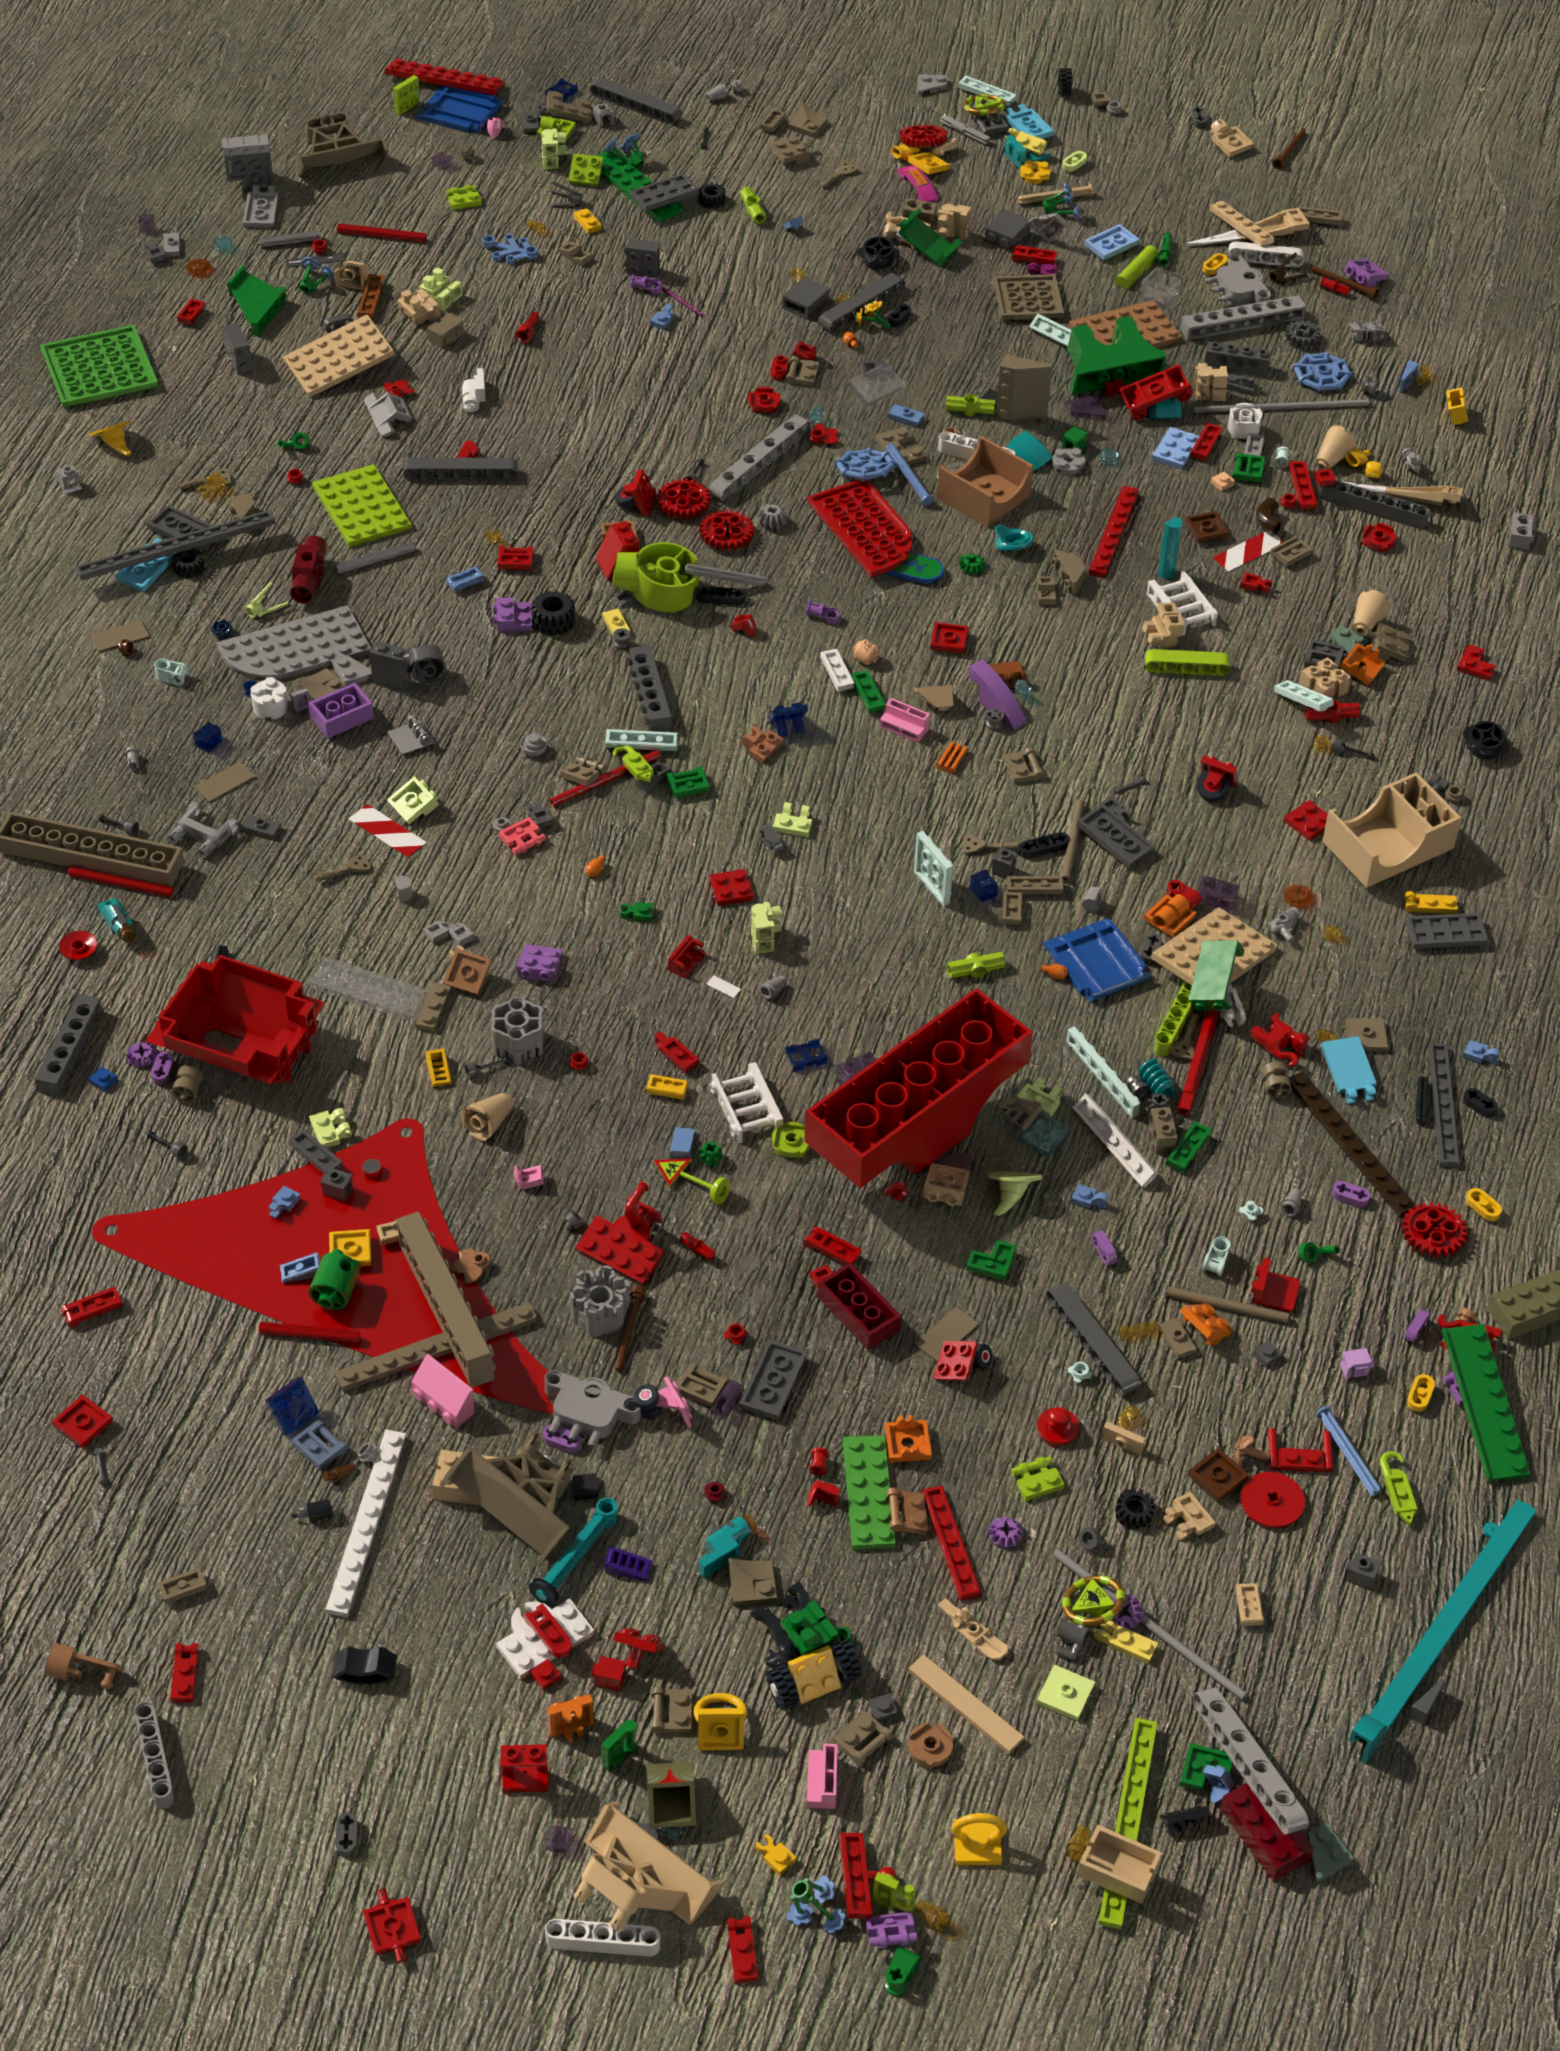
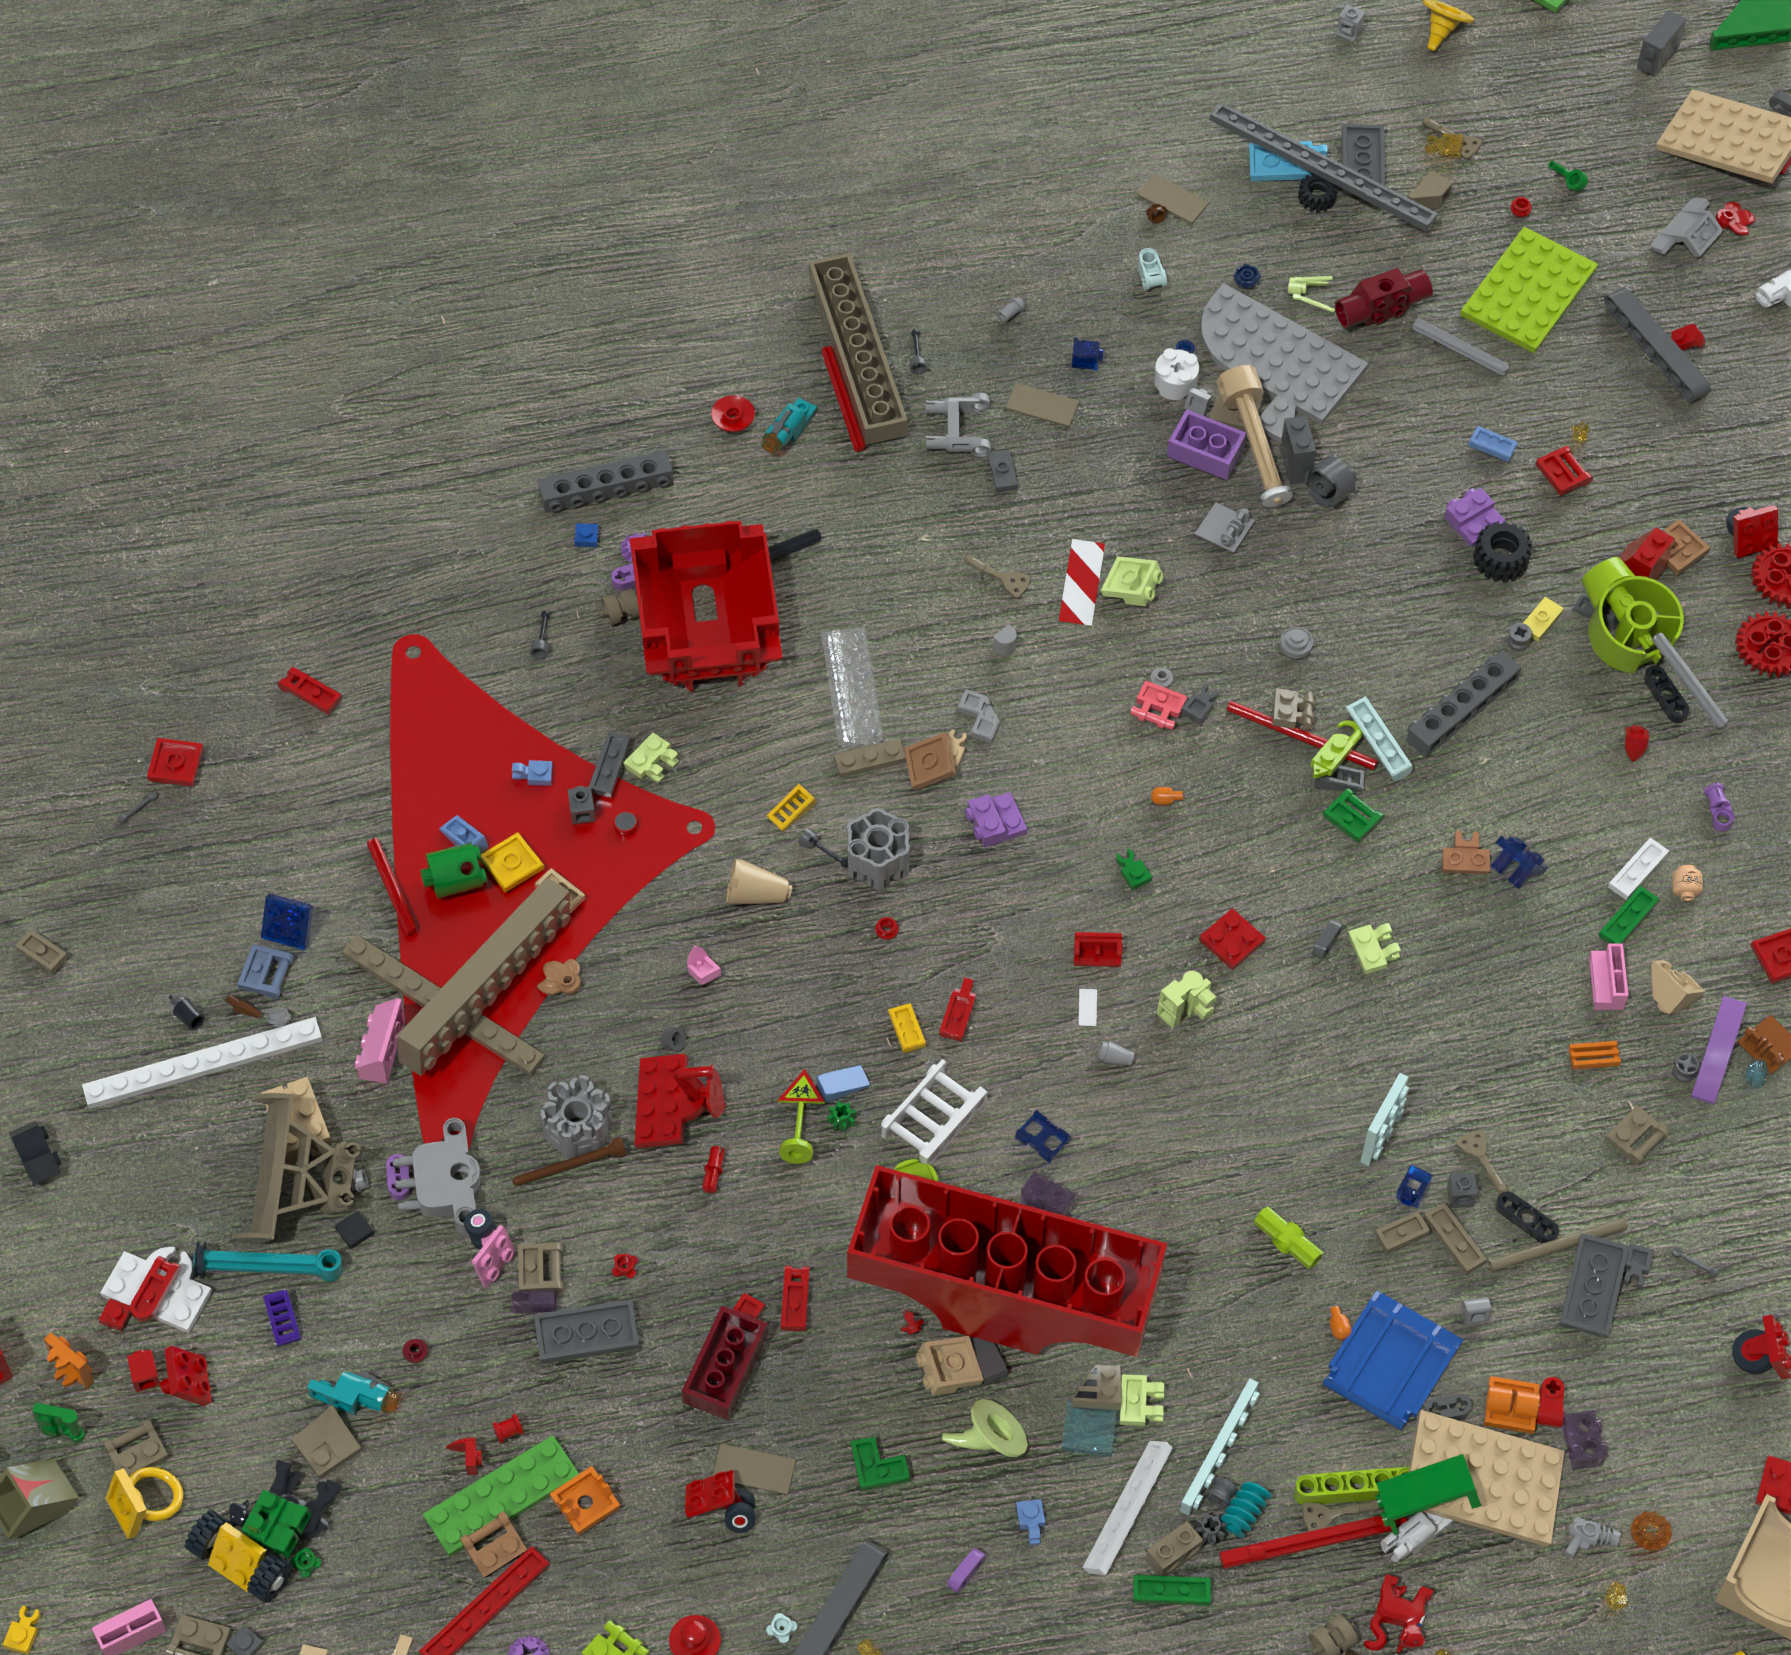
camera: 60 degrees right, 10 degrees up
(320, 666) = (1240, 390): none -> tan piece

